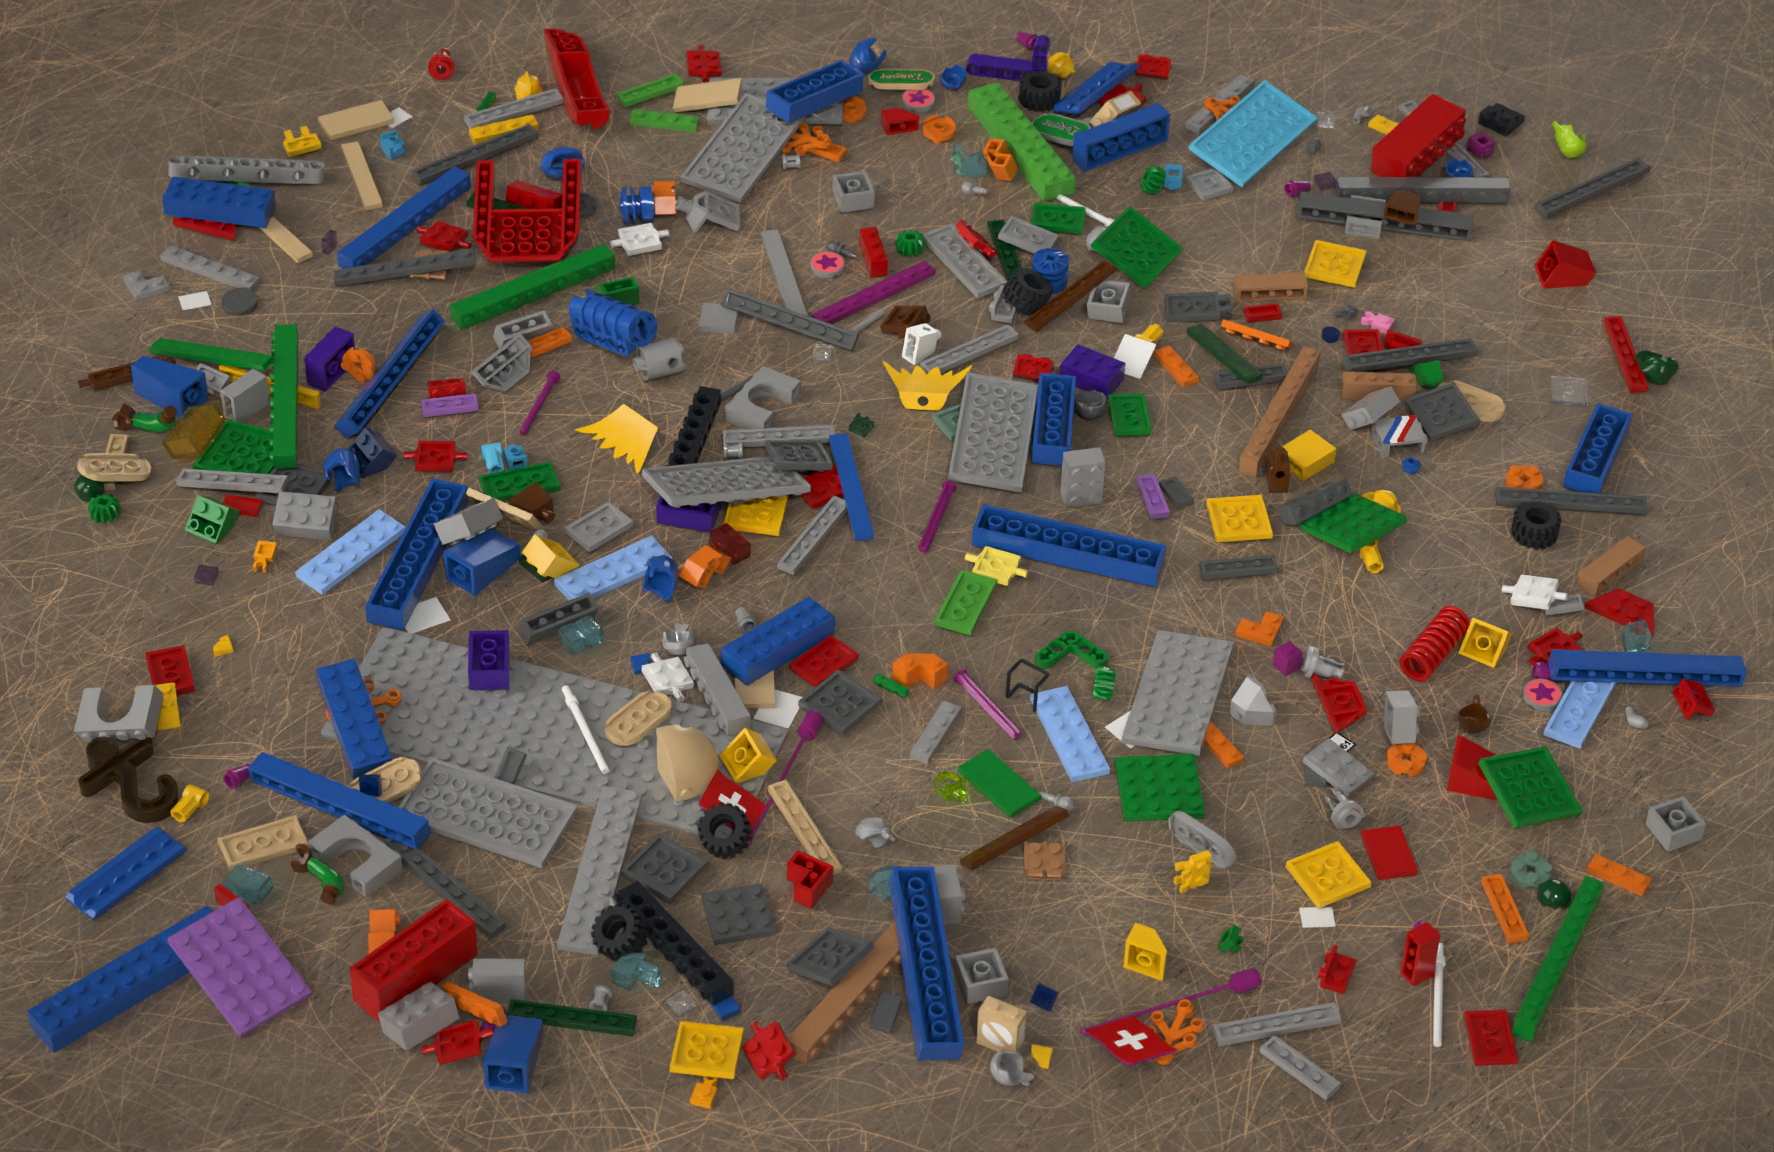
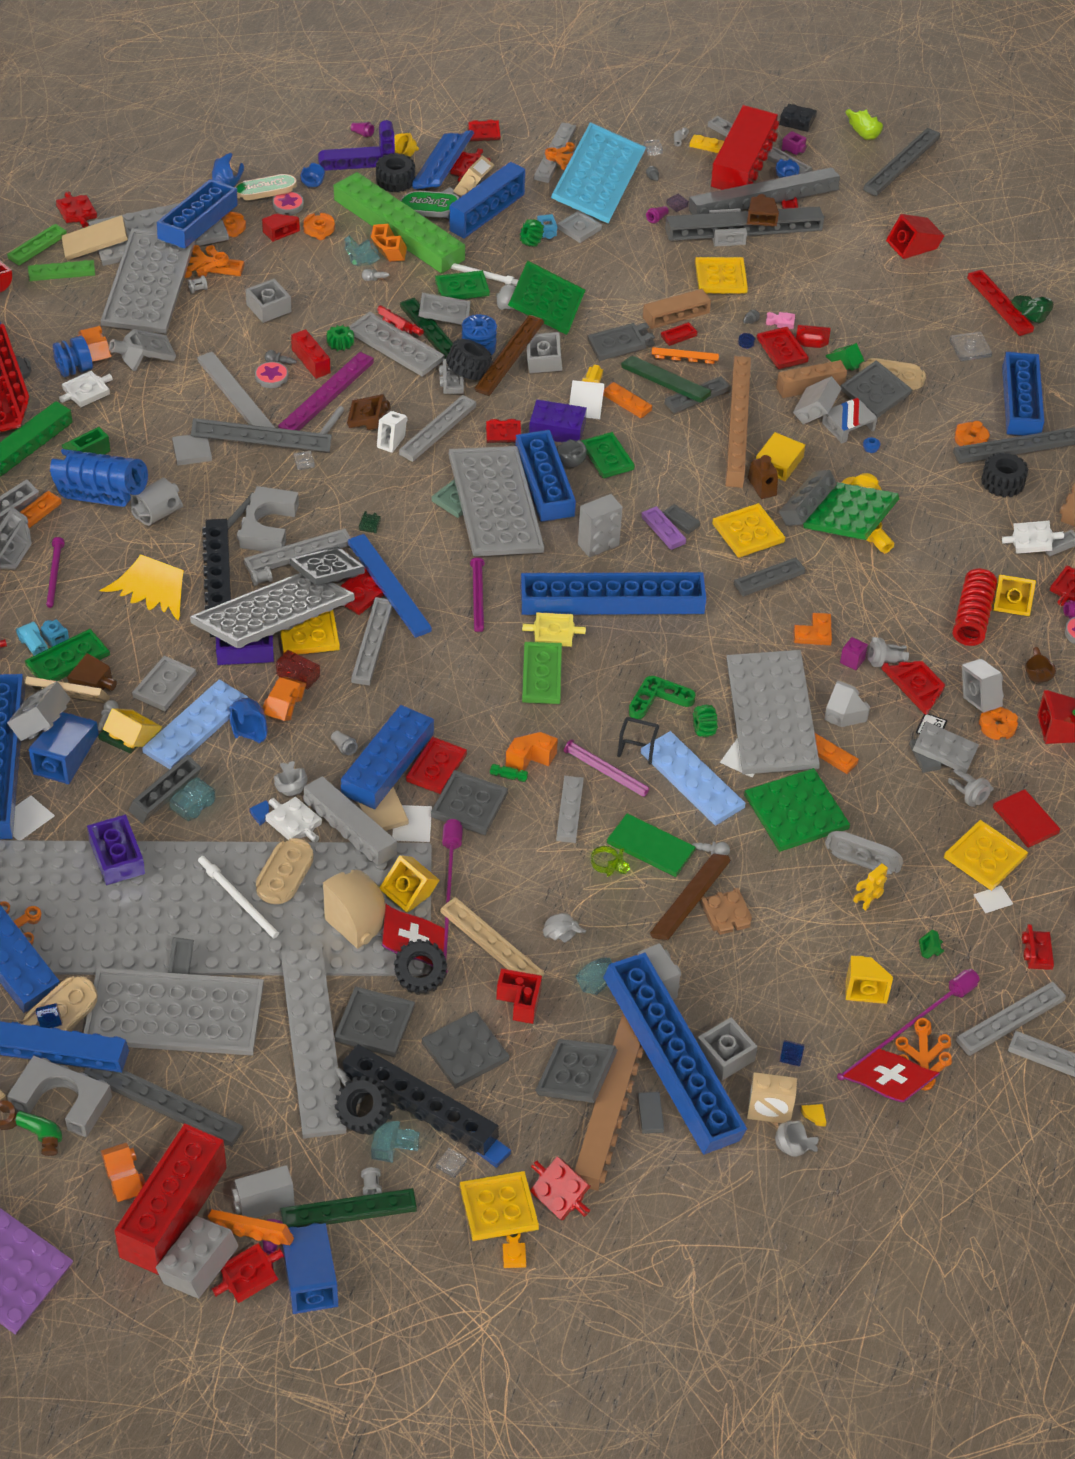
camera: 20 degrees left, 5 degrees up
(919, 384) = (418, 468): yellow piece -> none
(1410, 355) = (825, 344): dark grey plate -> none

